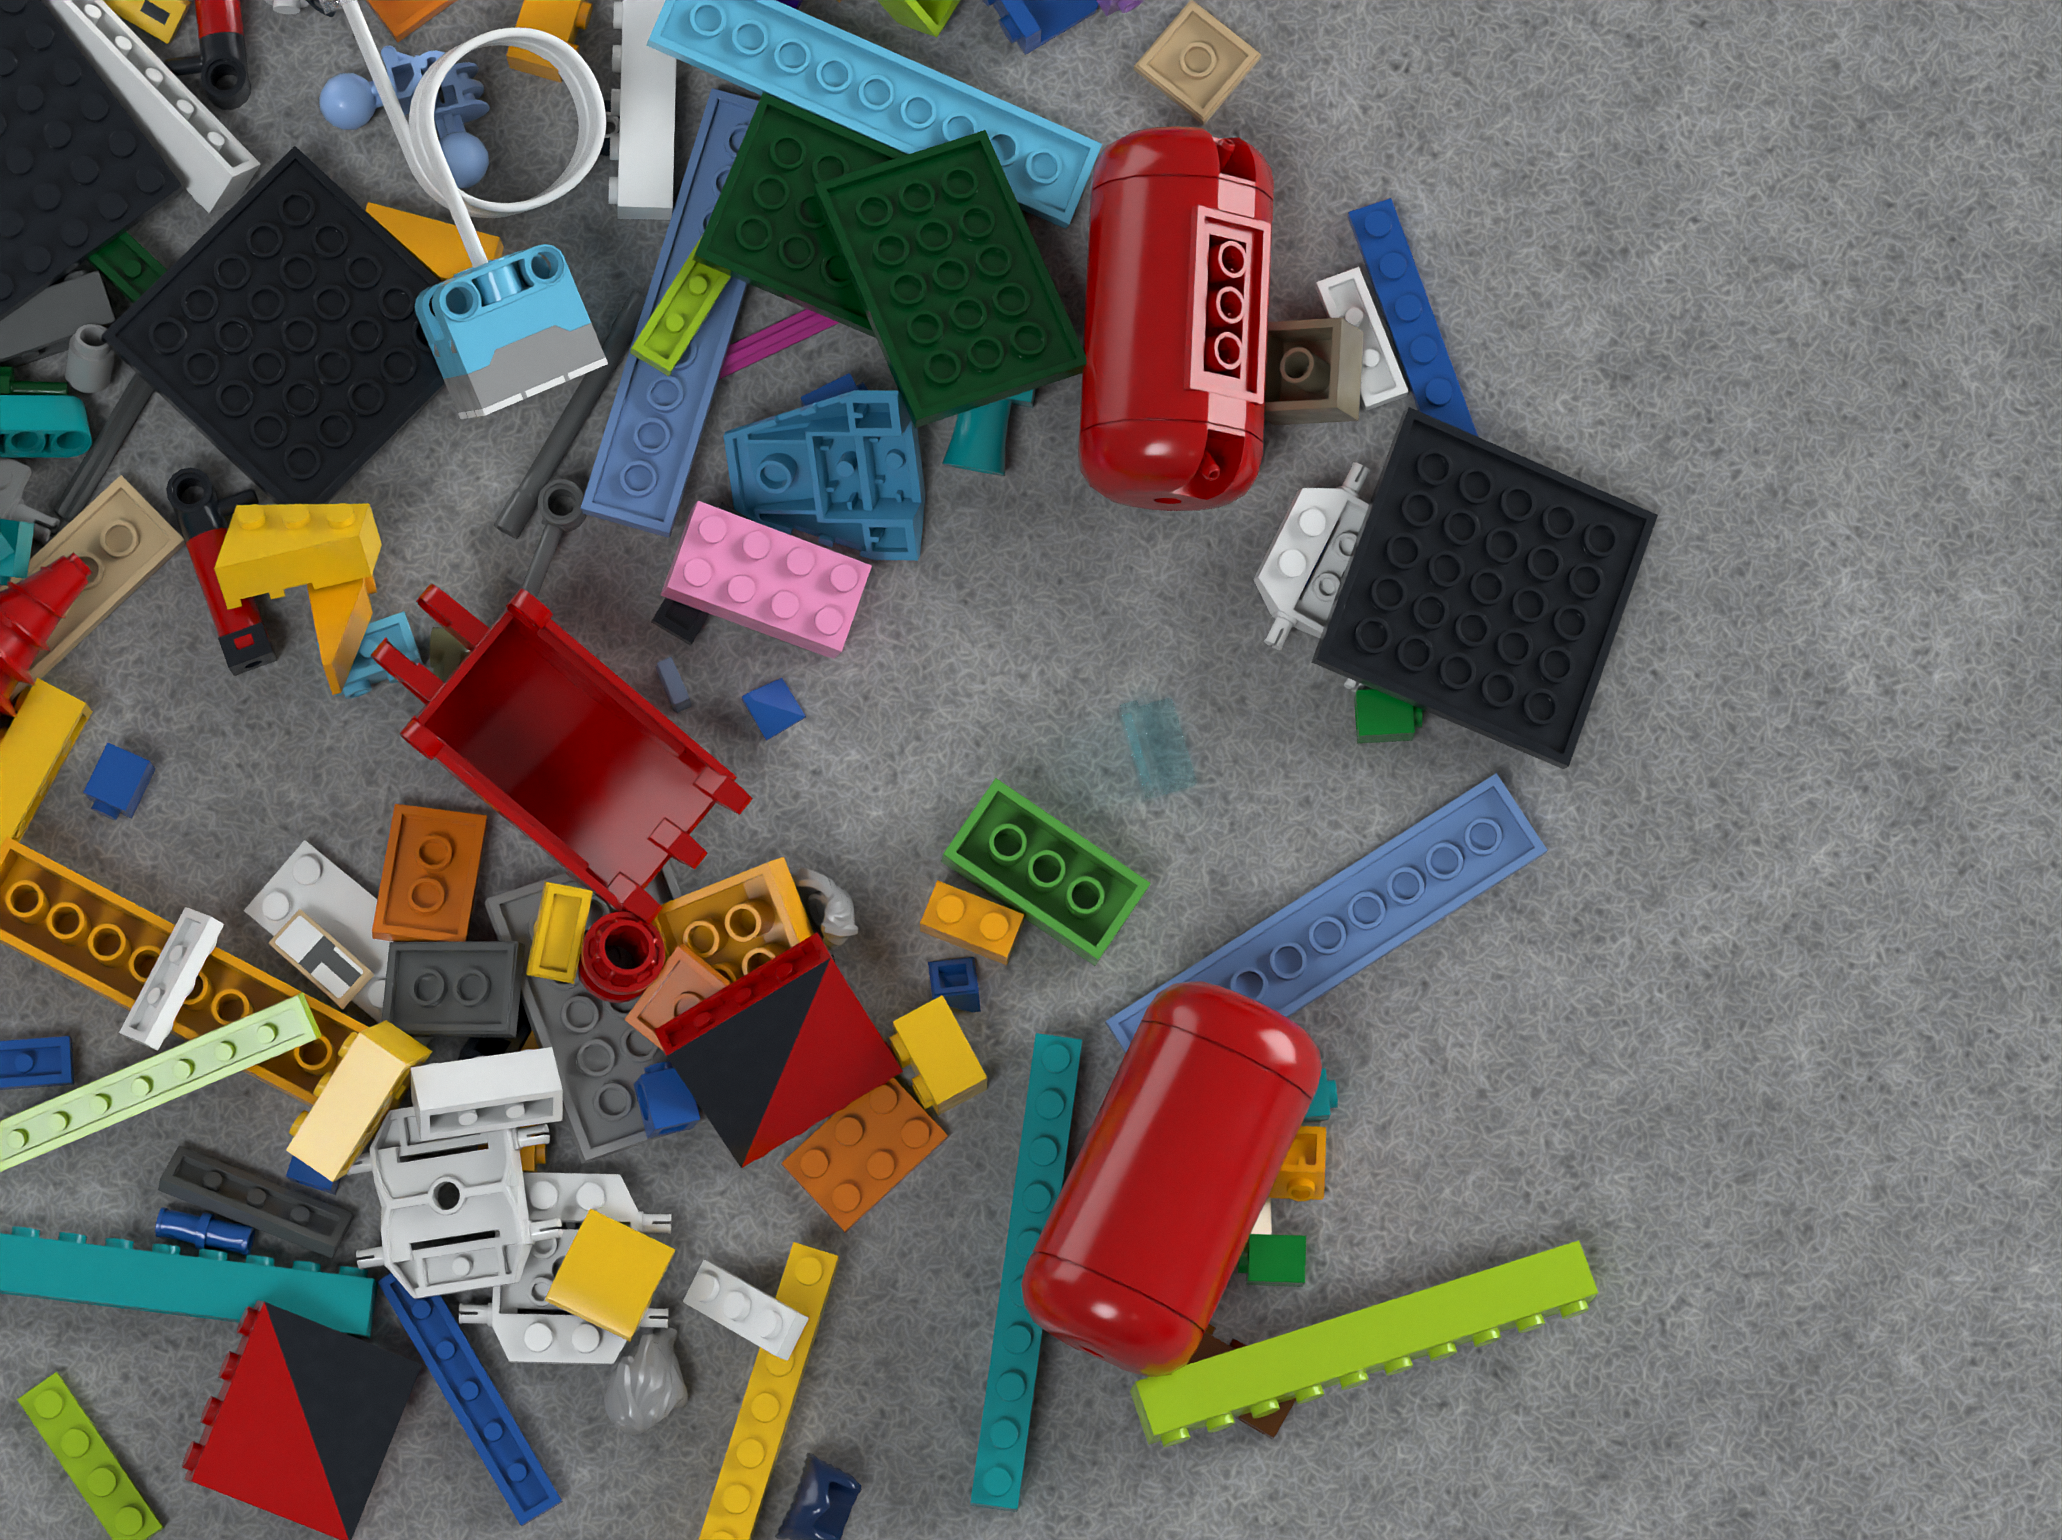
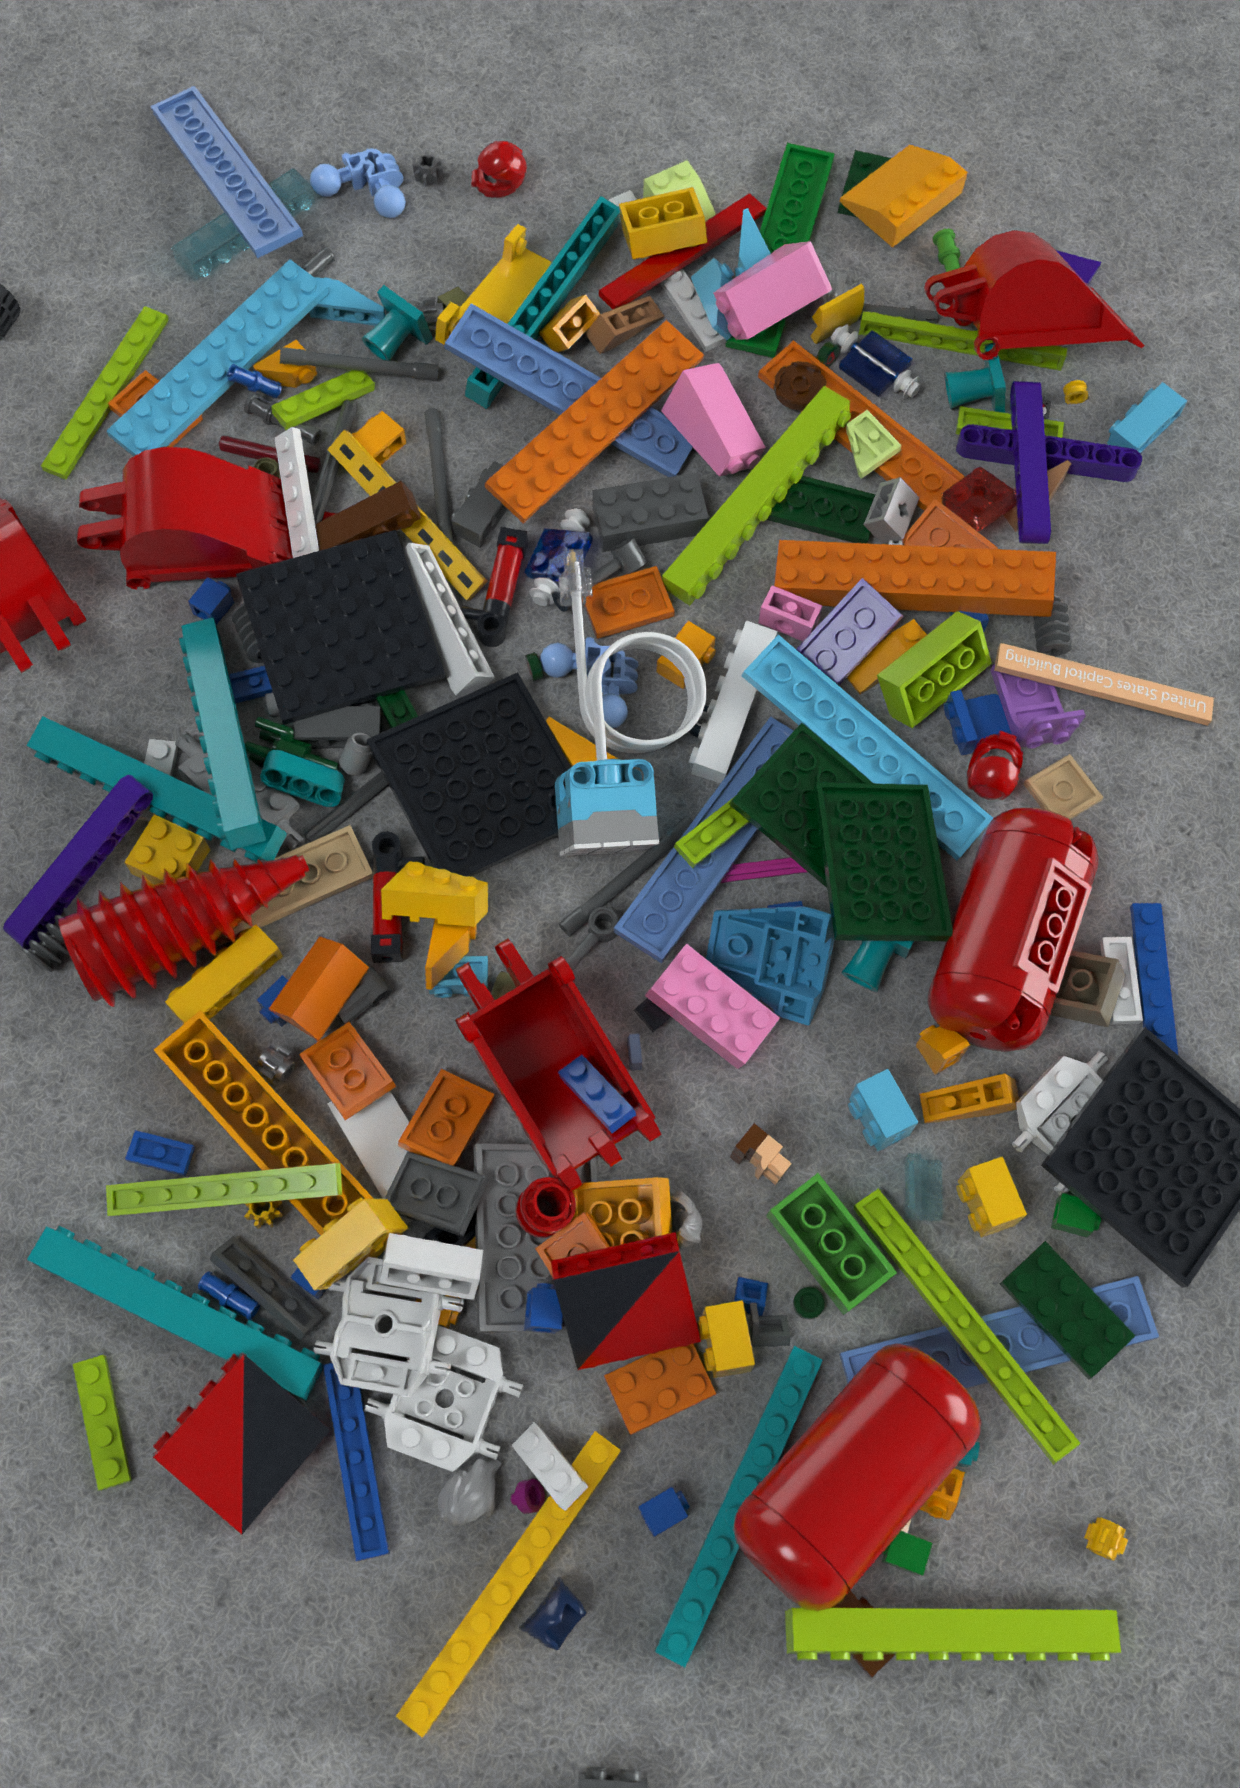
camera: 20 degrees right, 10 degrees down
(147, 876) = (276, 1063): none -> flat silver gear
(171, 743) = (319, 987): none -> orange slope
(171, 978) = (264, 1128): white plate -> none
(217, 1102) = (266, 1216): none -> yellow gear
(238, 729) = (367, 993): none -> dark grey piece
(257, 852) = (347, 1070): none -> orange plate
(315, 122) = (534, 666): none -> dark green tile
(321, 959) = (362, 1148): slope -> none
(559, 932) = (512, 1178): yellow tile -> none
(610, 1275) = (470, 1412): yellow slope -> none
(638, 768) = (597, 1093): none -> blue plate
(730, 1361) = (528, 1496): none -> magenta tile
(773, 708) = (691, 1086): blue slope -> none
(907, 773) = (763, 1153): none -> light nougat hips
(925, 1317) = (664, 1511): none -> blue brick
(971, 922) = (774, 1260): light orange brick -> none
(991, 1023) = (767, 1330): none -> dark grey bracket
(1040, 966) = (808, 1303): none -> dark green tile
(1062, 655) = (882, 1110): none -> medium azure piece
(1085, 80) = (995, 775): none -> red helmet
(1122, 531) = (941, 1047): none -> light orange slope
(1188, 594) = (970, 1099): none -> light orange slope
(1254, 731) = (990, 1197): none -> yellow brick
(1266, 922) = (967, 1327): none -> lime plate
(1406, 855) = (1067, 1310): none -> dark green plate
(1543, 1151) = (1106, 1538): none -> yellow gear

